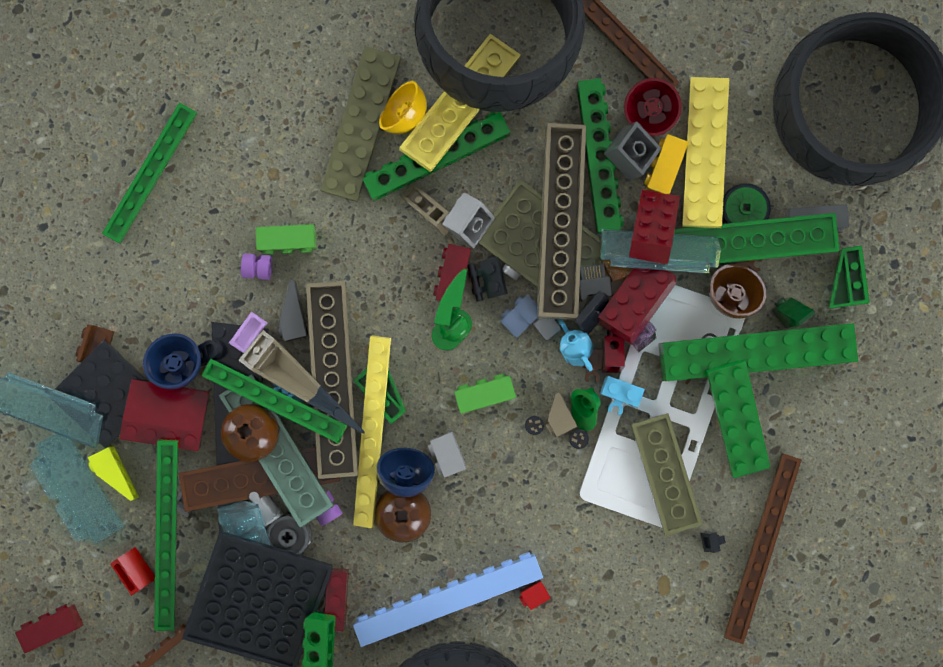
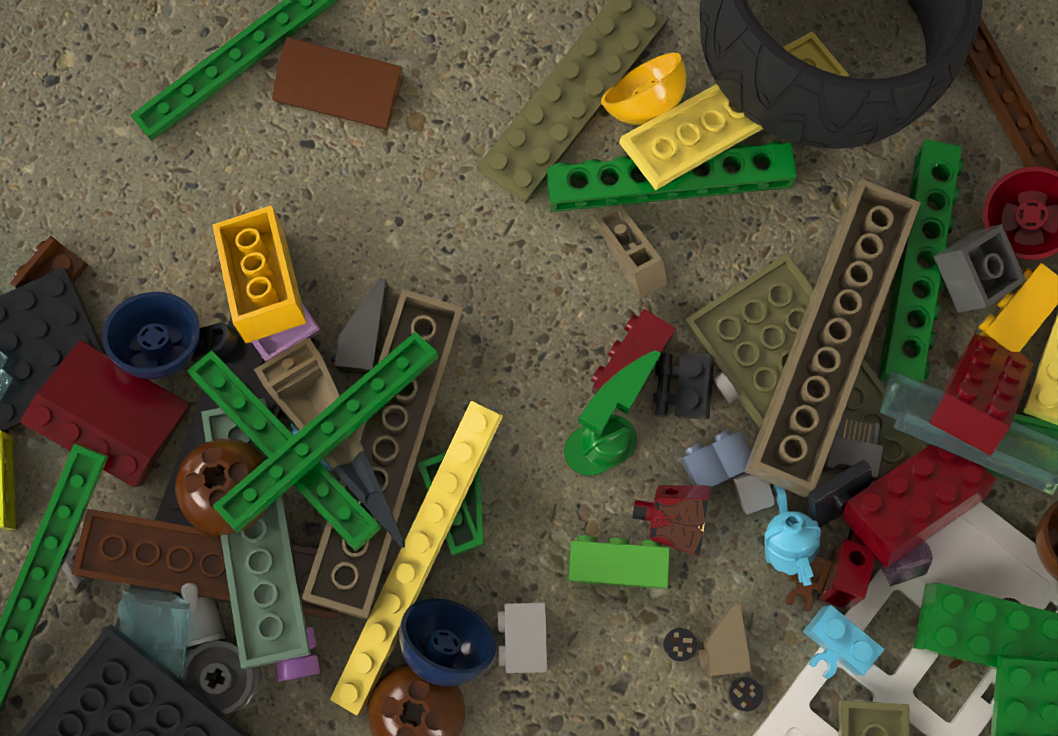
camera: 20 degrees right, 10 degrees down
(217, 168) = (337, 83): none -> reddish brown slope
(219, 304) = (258, 274): none -> yellow brick
(256, 266) = (334, 240): medium lavender wheel -> none
(286, 239) = (398, 217): bright green brick -> none
(296, 382) = (325, 432): none -> green plate
(468, 220) = (688, 283): light grey brick -> none
(508, 356) = (676, 516): none -> torso
(584, 408) = (773, 645): green piece -> none
(615, 272) = (895, 442): clear orange brick -> none

